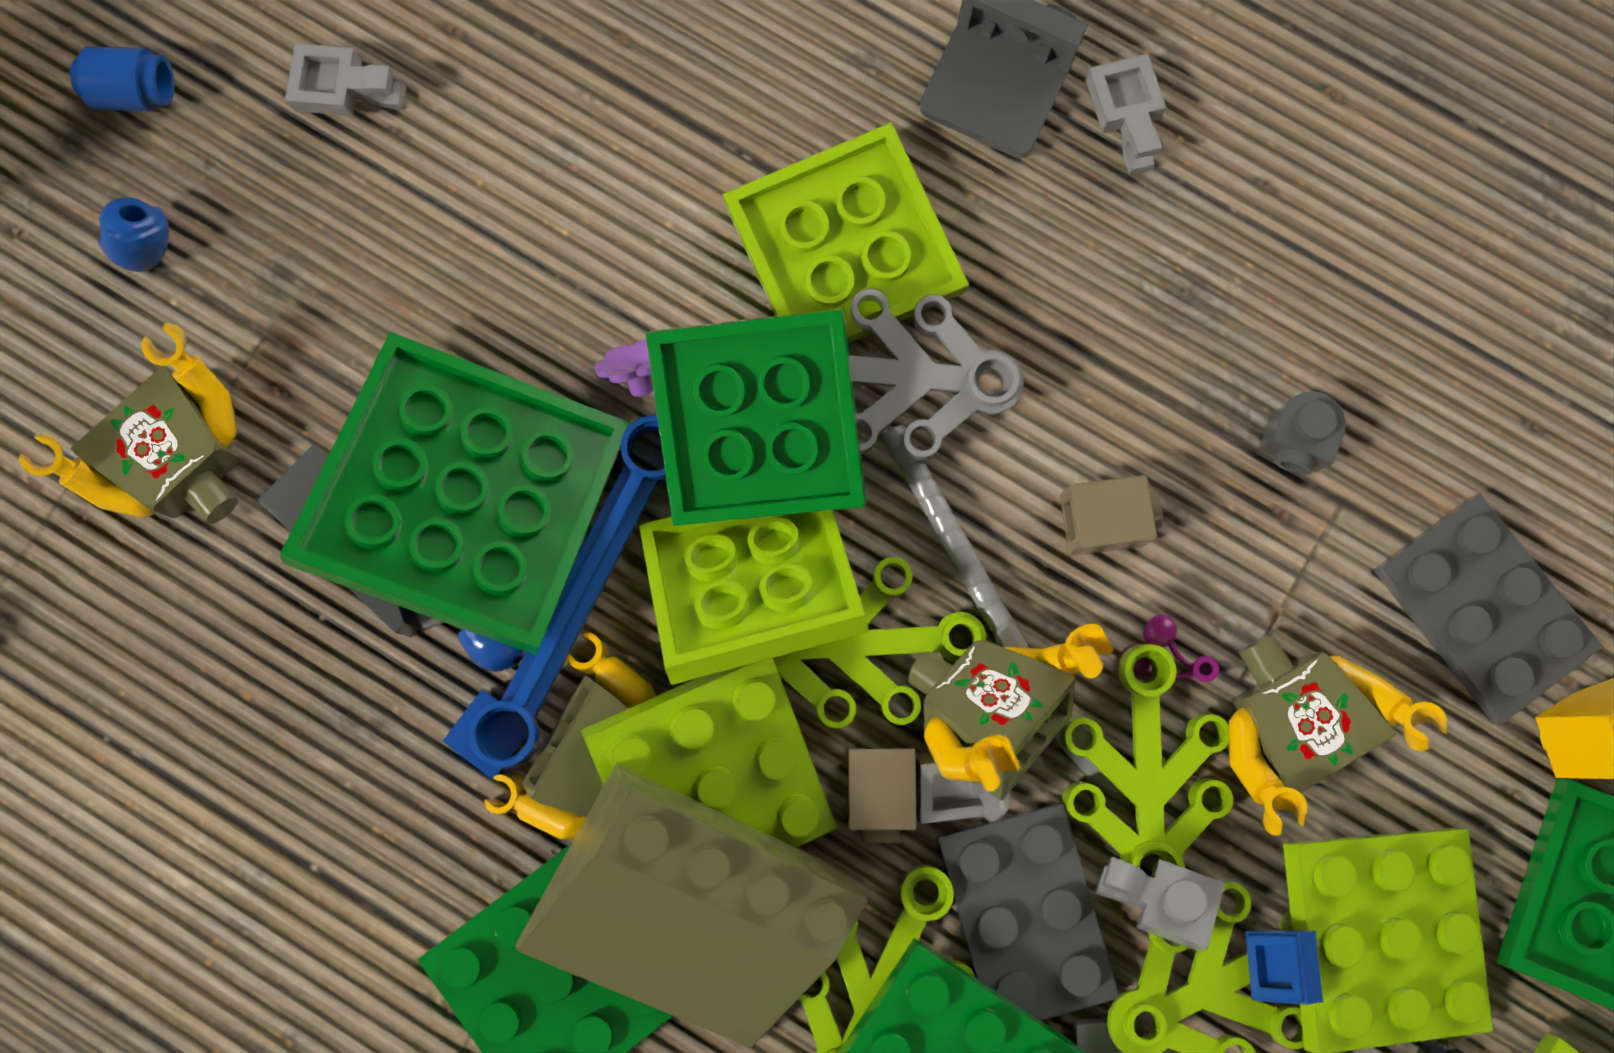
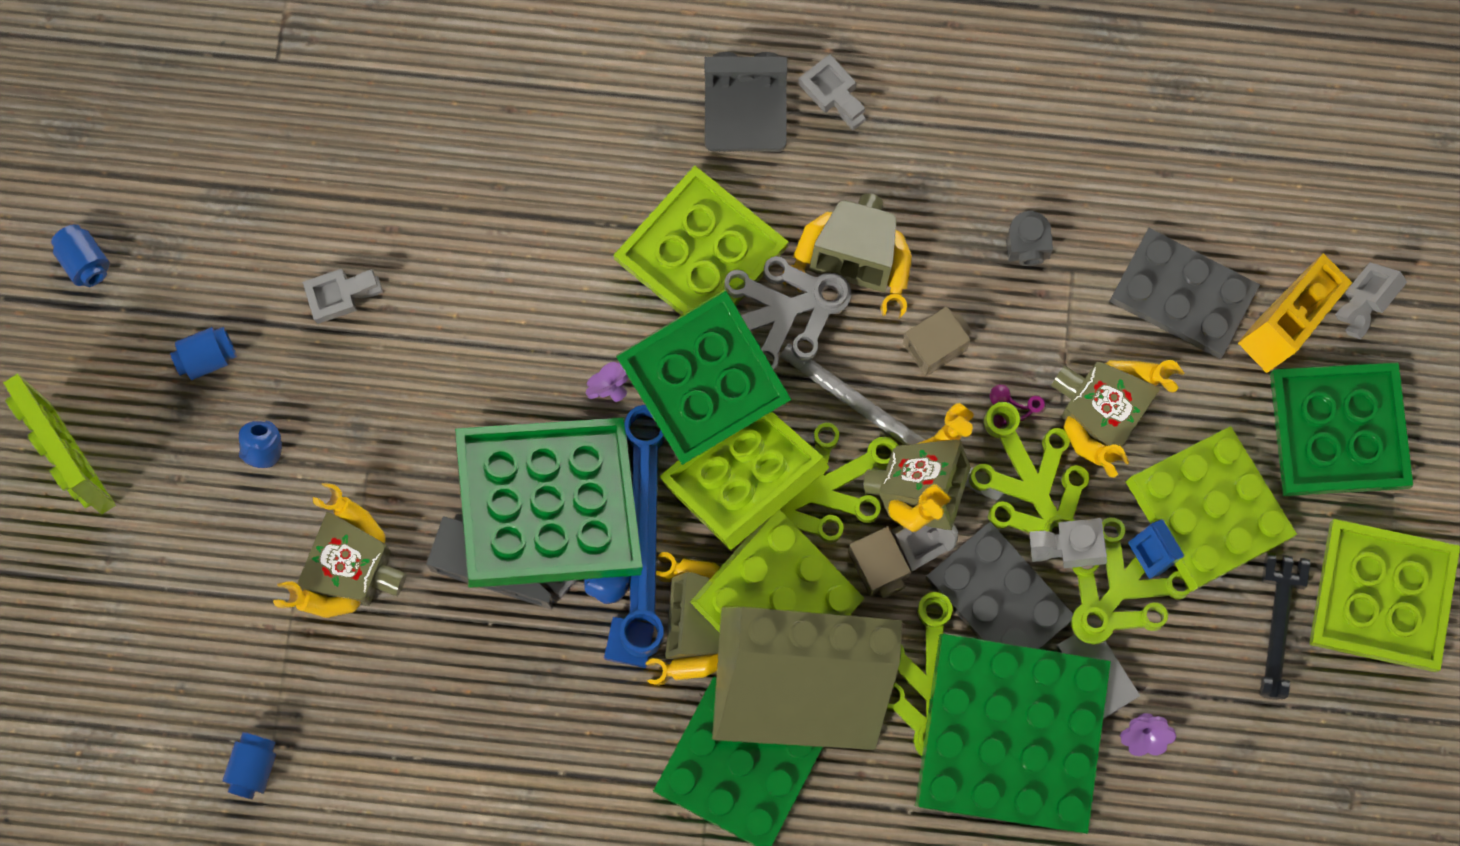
camera: 25 degrees left, 5 degrees down
(1064, 336) = (860, 246): none -> torso

